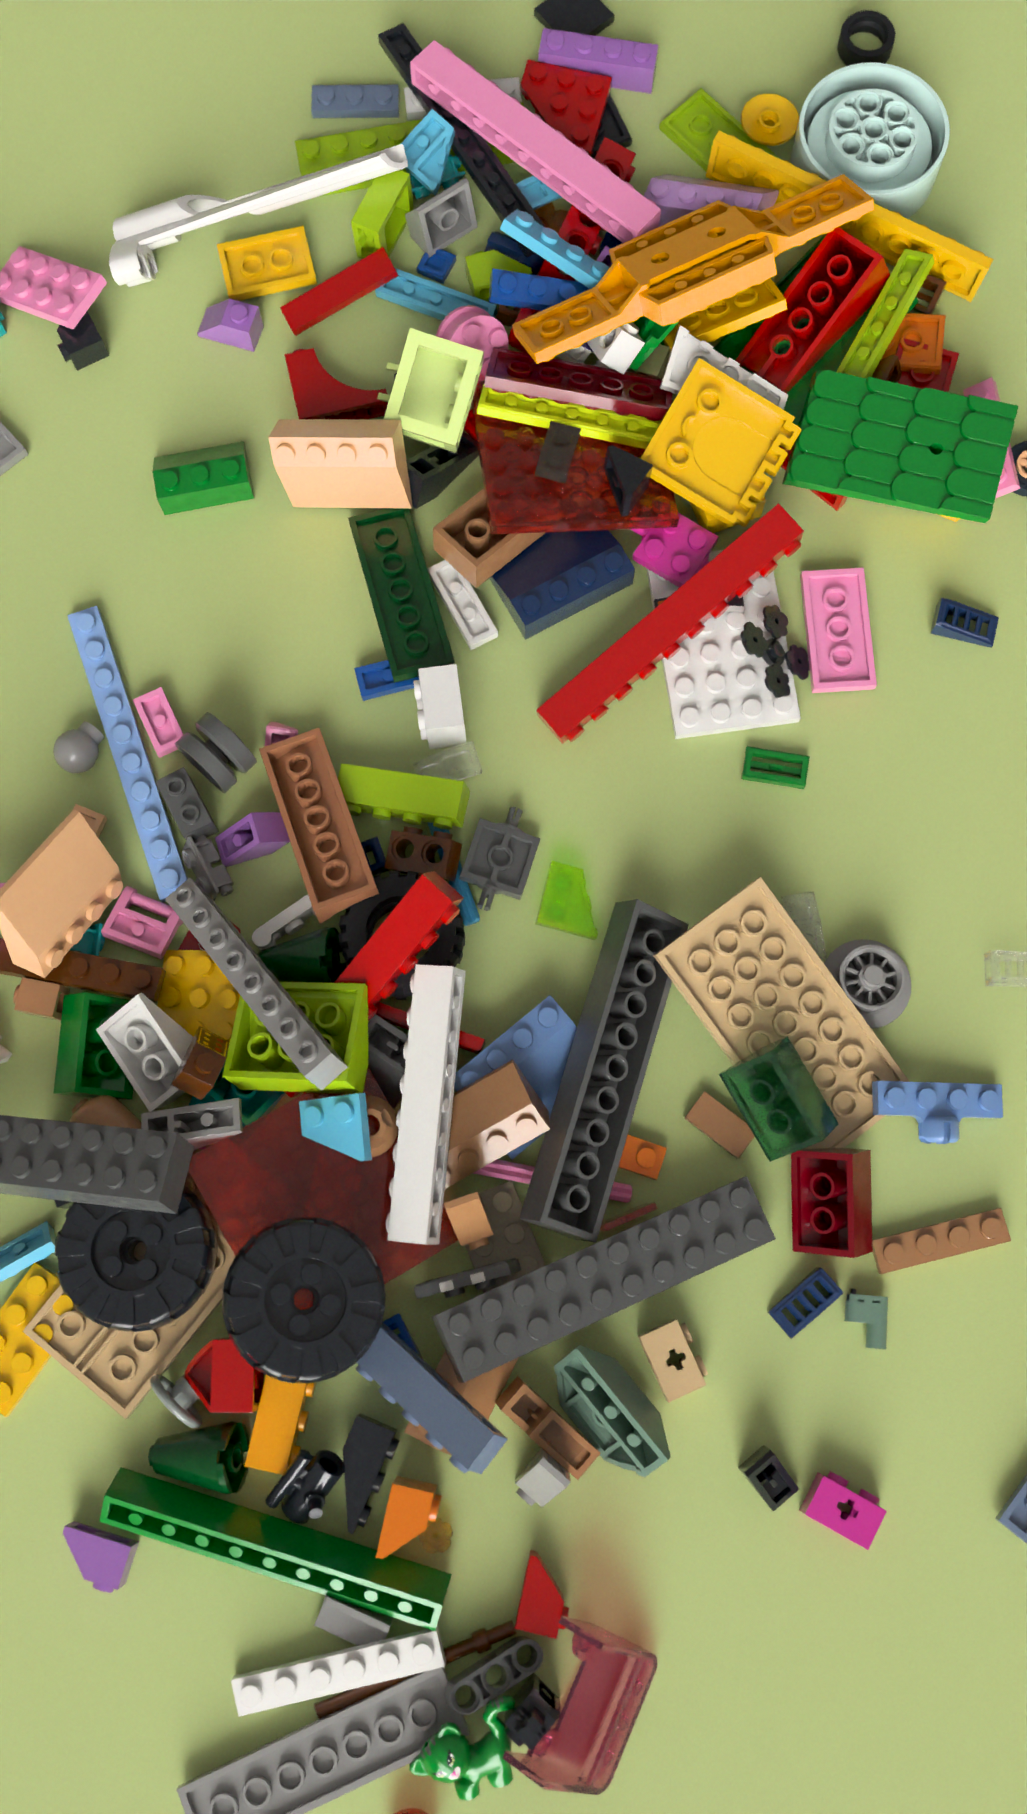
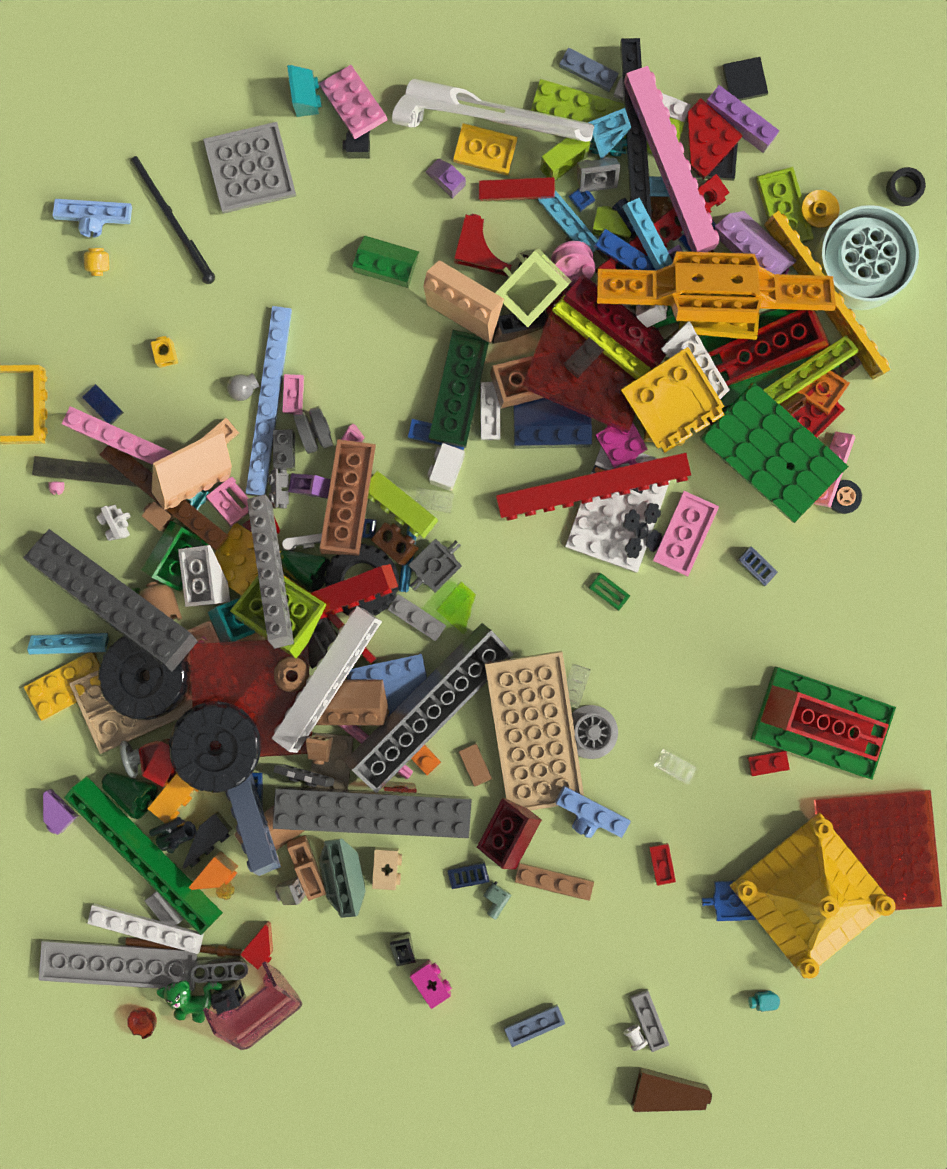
camera: 25 degrees right, 10 degrees up
(198, 1123) = (204, 627): light grey slope -> none
(201, 1063) = (223, 598): reddish brown slope -> none
(338, 1124) = (276, 667): medium azure wing -> none
(513, 950) = (416, 617): none -> light grey plate
(627, 477) = (612, 394): black slope -> none
(779, 1099) = (509, 770): clear green slope -> none

